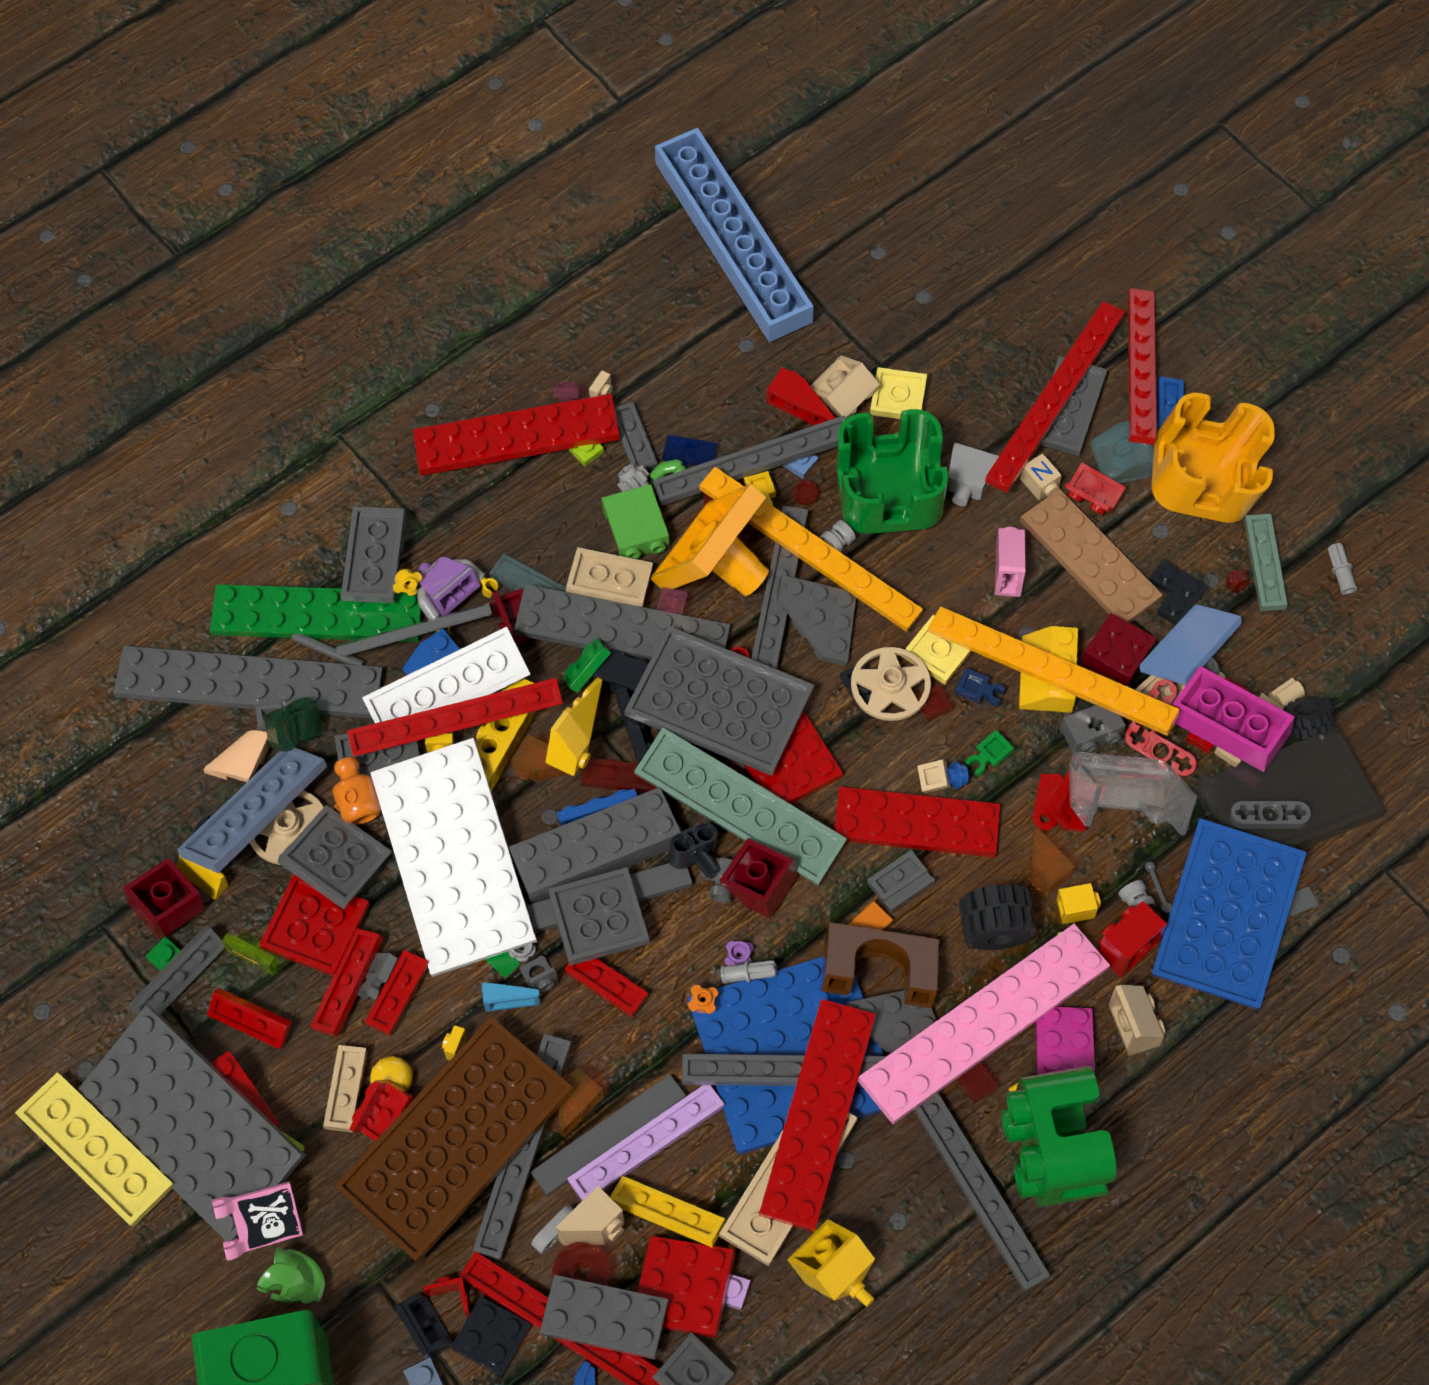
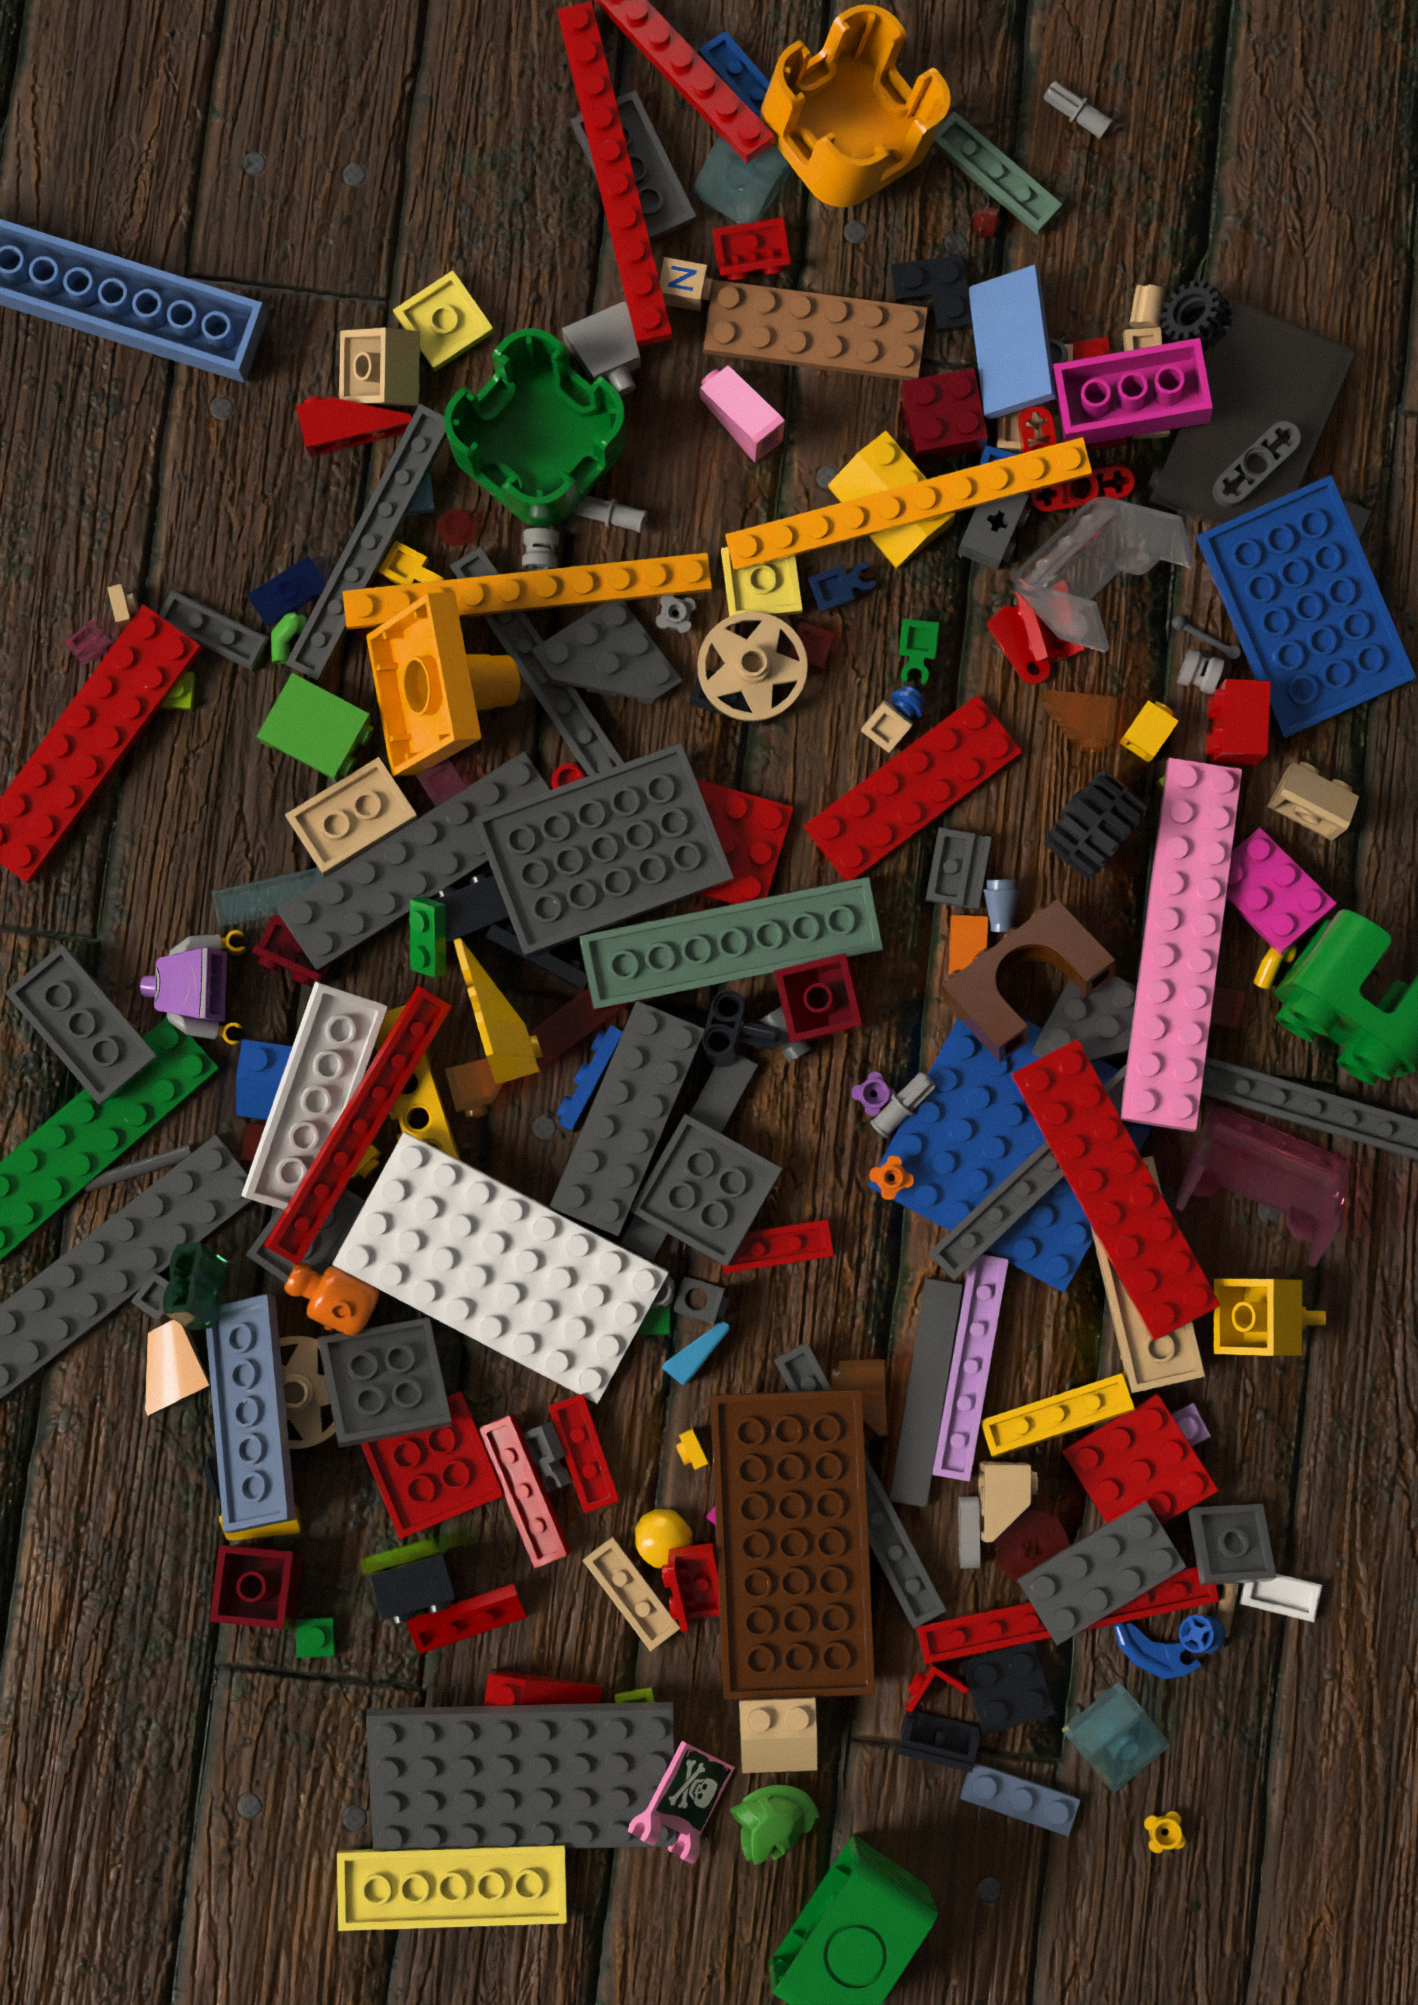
camera: 45 degrees left, 20 degrees up
(179, 972) = (350, 1646): dark grey plate -> none
(241, 971) = (415, 1586): none -> black brick
(343, 1236) = (778, 1734): none -> tan slope
(402, 577) = (152, 1024): yellow plate -> none
(413, 629) = (212, 1067): dark grey tile -> none
(632, 477) = (263, 681): light grey gear -> none
(877, 634) = (682, 621): none -> light grey plate
(893, 553) = (612, 513): none -> light grey axle
(908, 917) = (1001, 903): none -> sand blue cone
(915, 1188) = (1270, 1170): none -> clear pink windscreen

